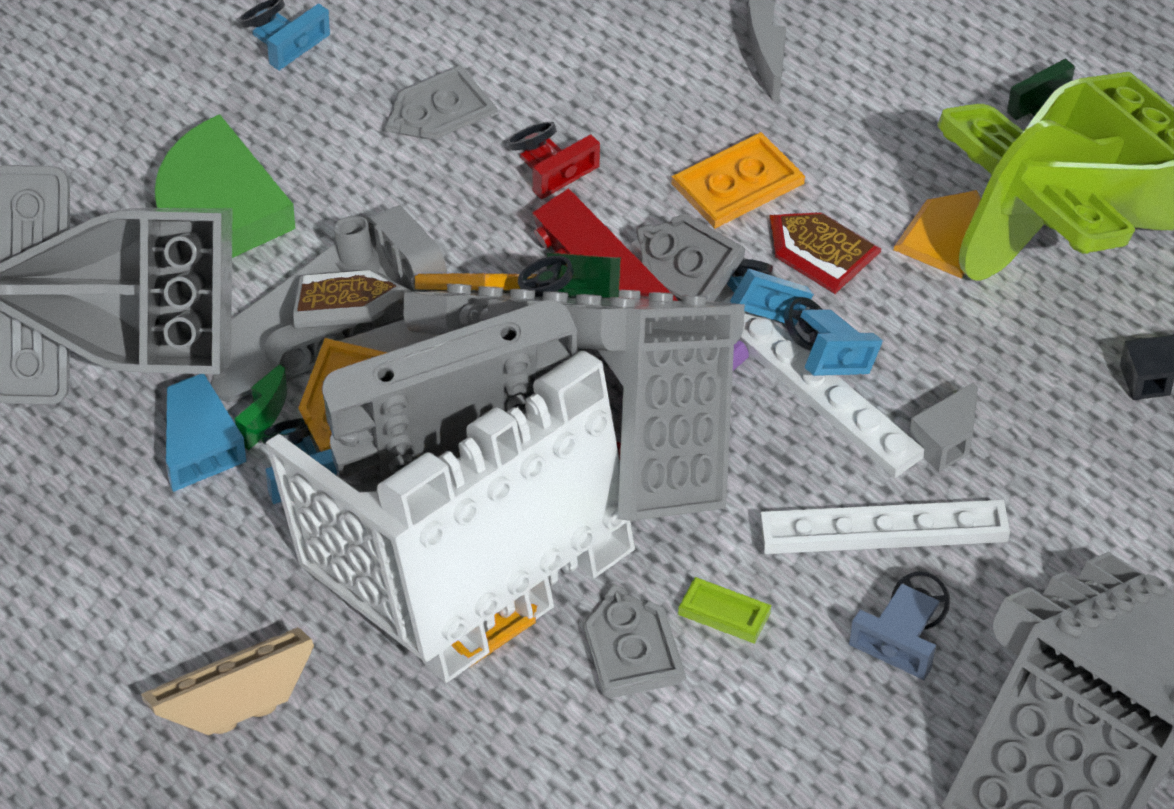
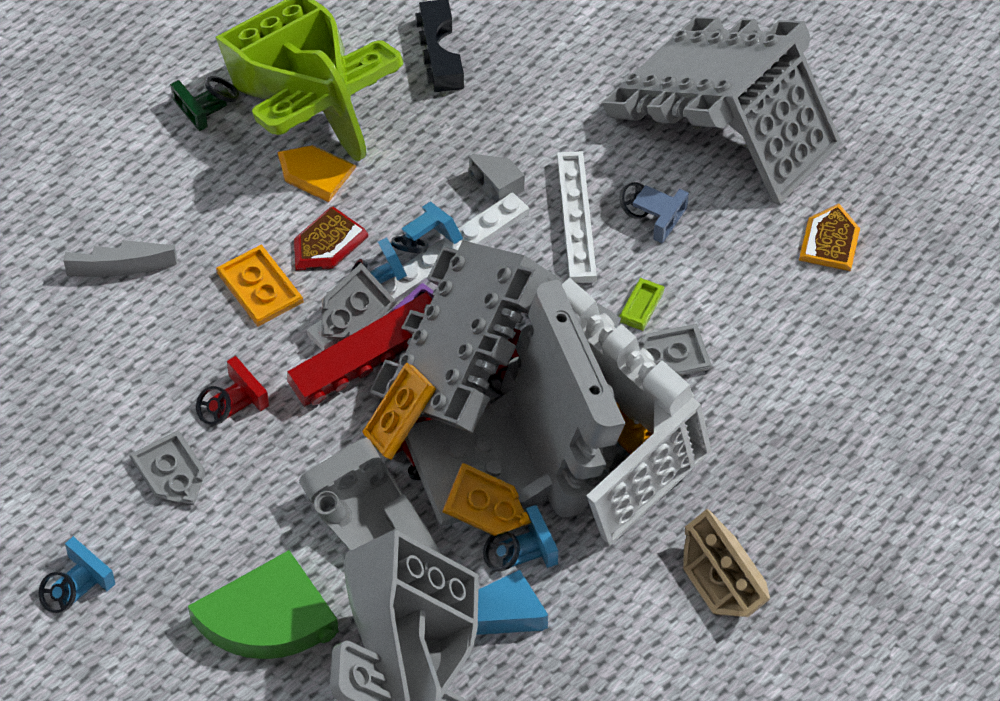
camera: 90 degrees left, 5 degrees up
(268, 400) = (479, 563): green slope -> none
(344, 298) = (385, 506): tile -> none
(573, 275) = (423, 338): dark green piece -> none

